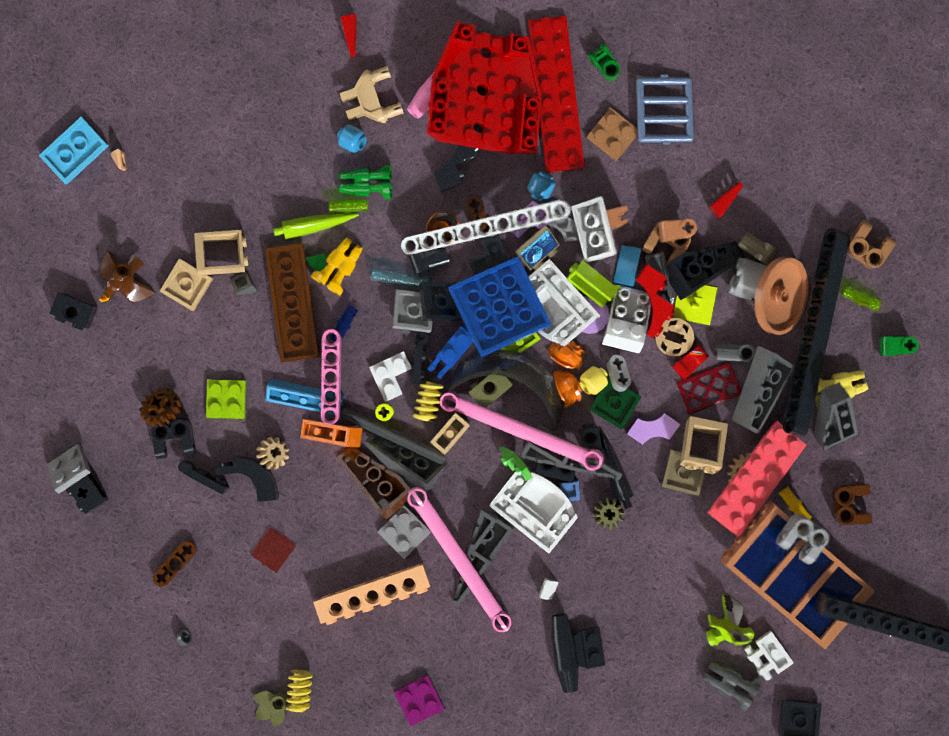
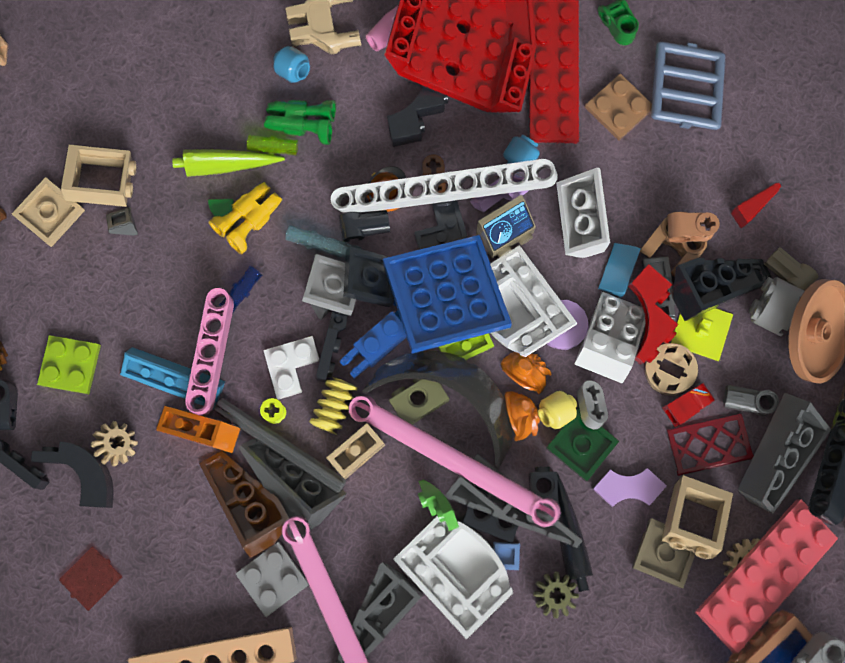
camera: 10 degrees right, 10 degrees down
(292, 302) = (178, 254): reddish brown plate -> none
(565, 226) = (545, 209): light grey tile -> none
(591, 283) = (571, 282): lime window -> none
(614, 220) = (613, 200): nougat hinge -> none
(794, 504) = (813, 620): yellow pin -> none

